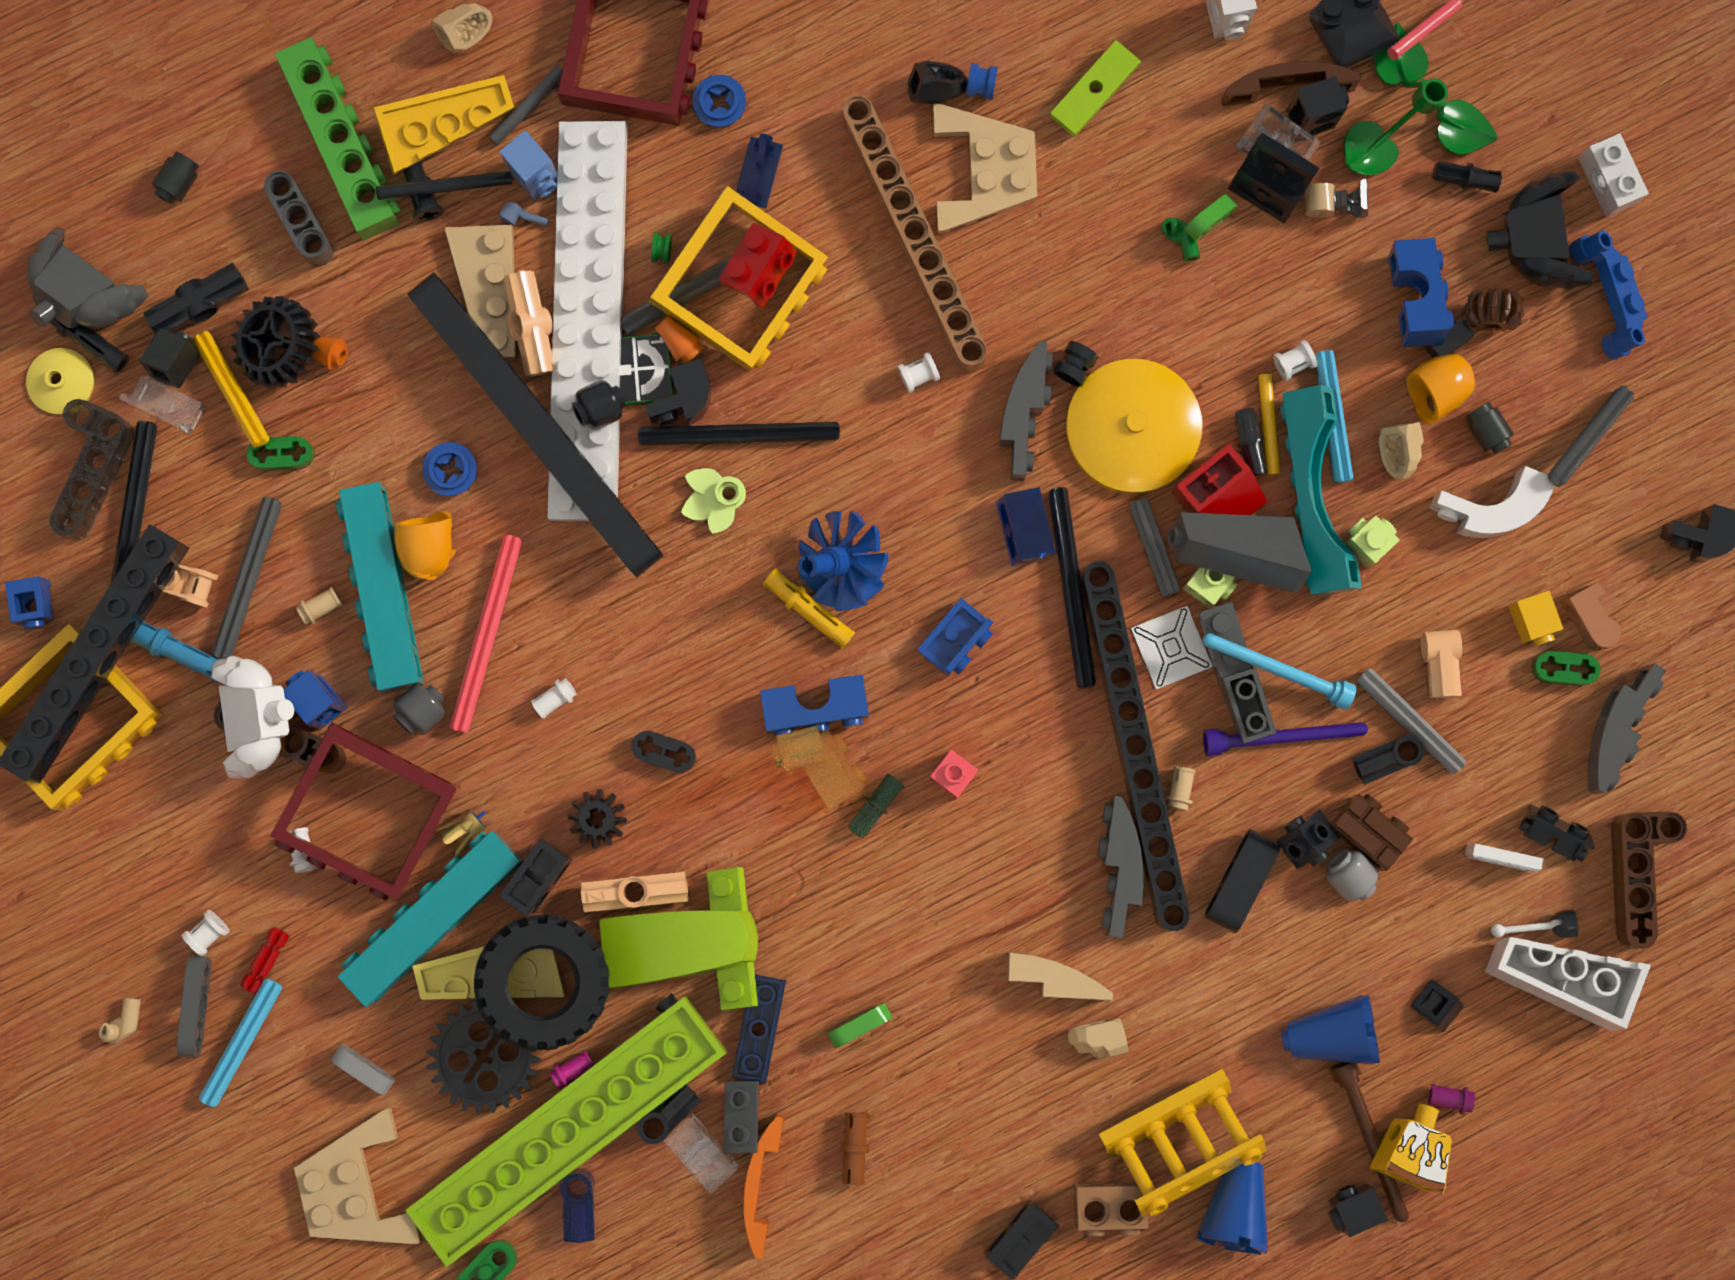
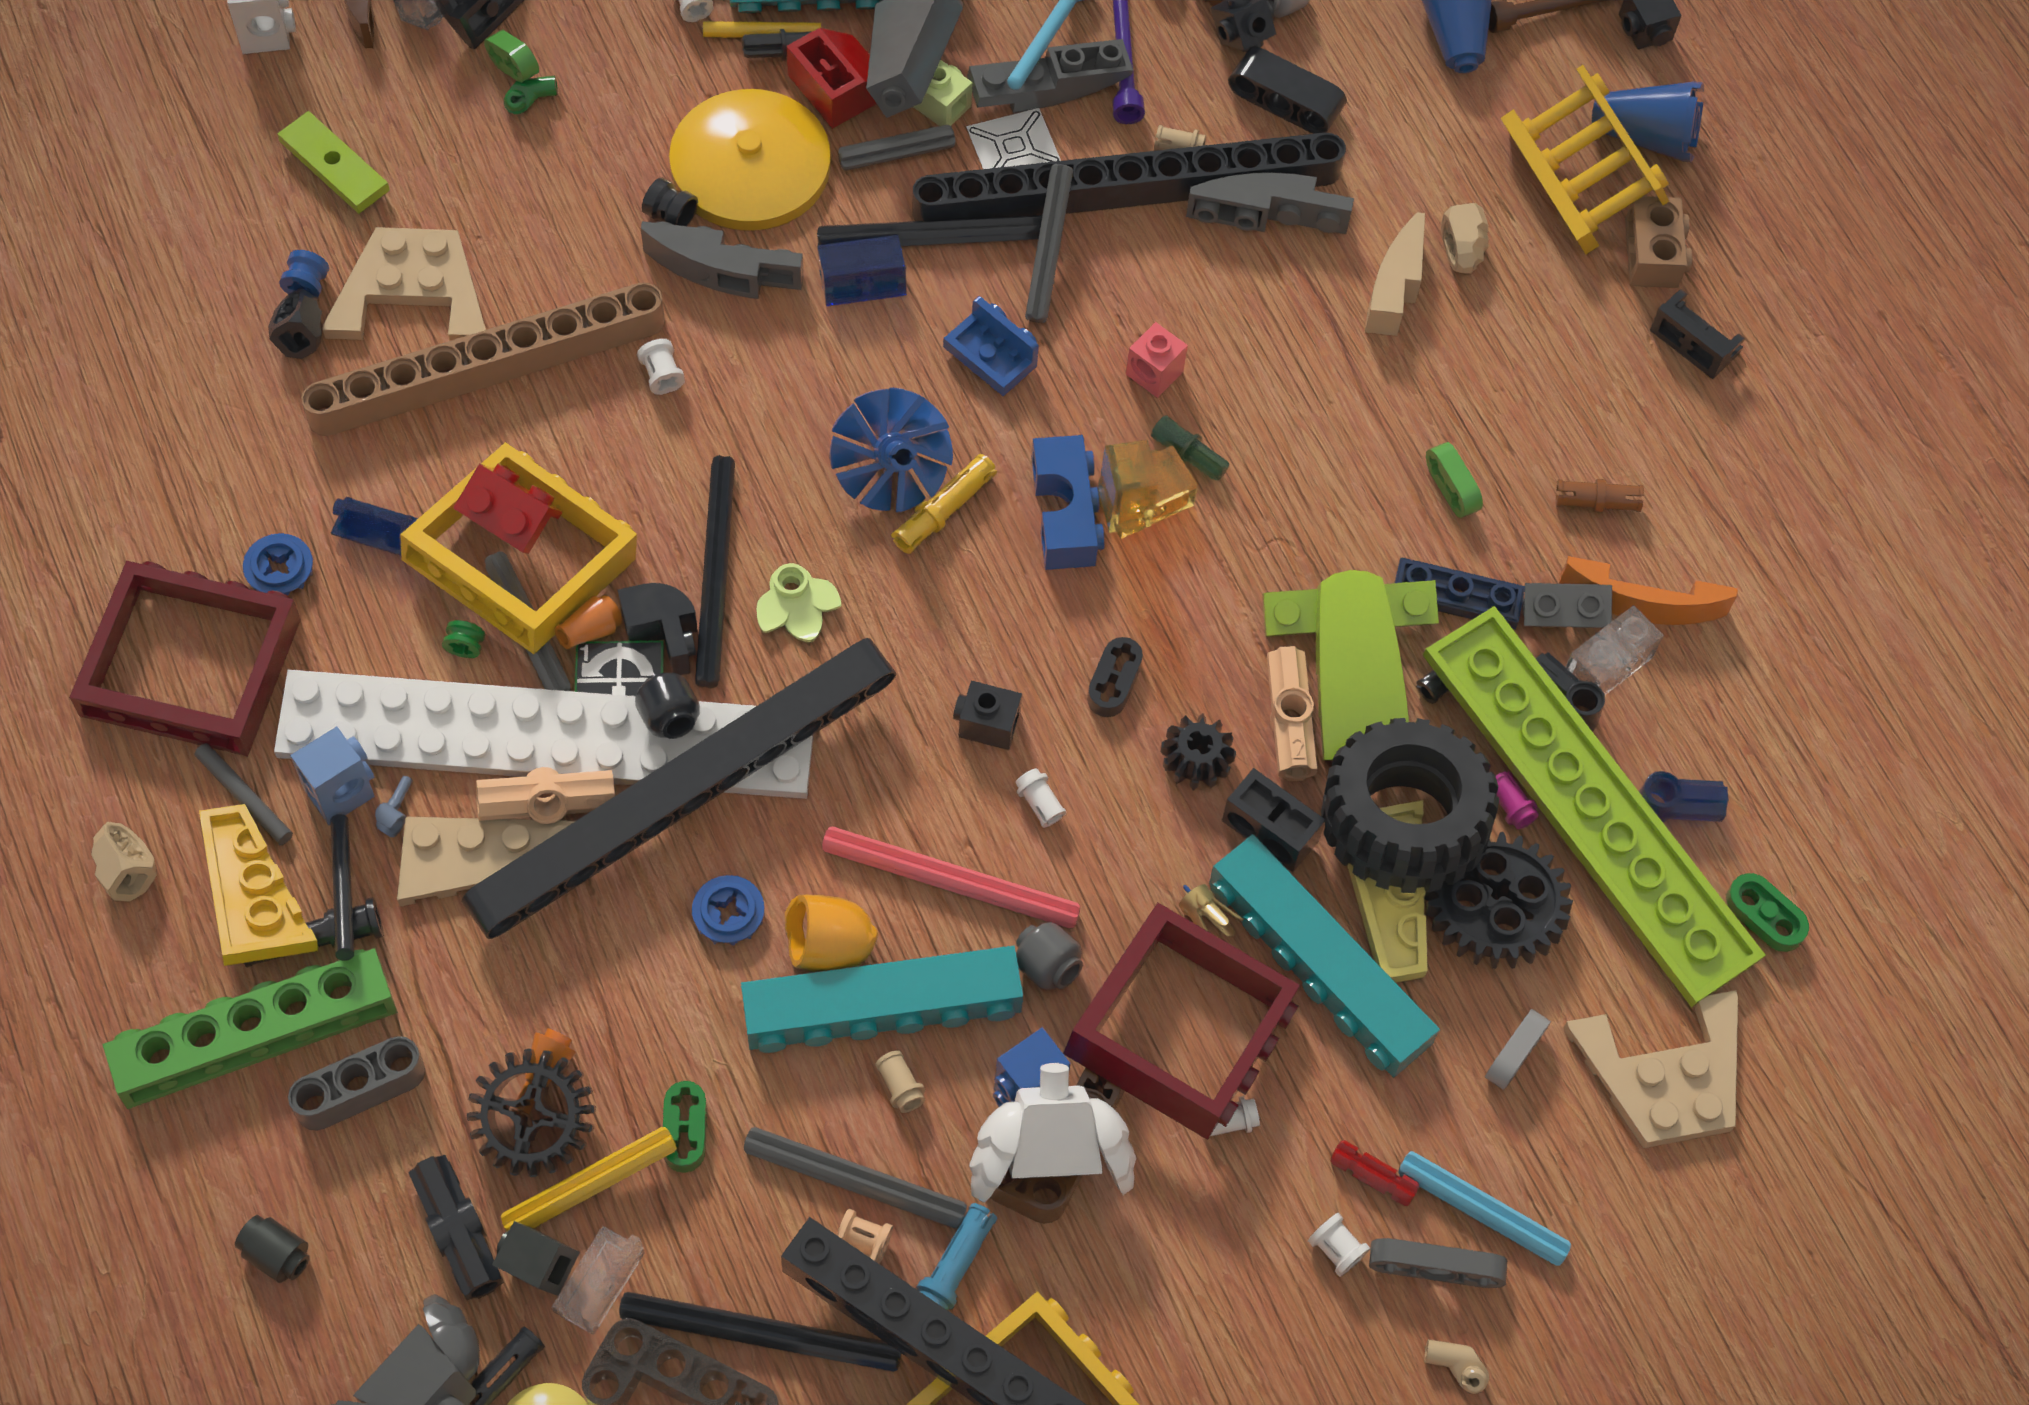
camera: 90 degrees left, 20 degrees down
(619, 653) = (988, 714): none -> black brick
(1057, 679) = (1049, 243): none -> dark grey axle

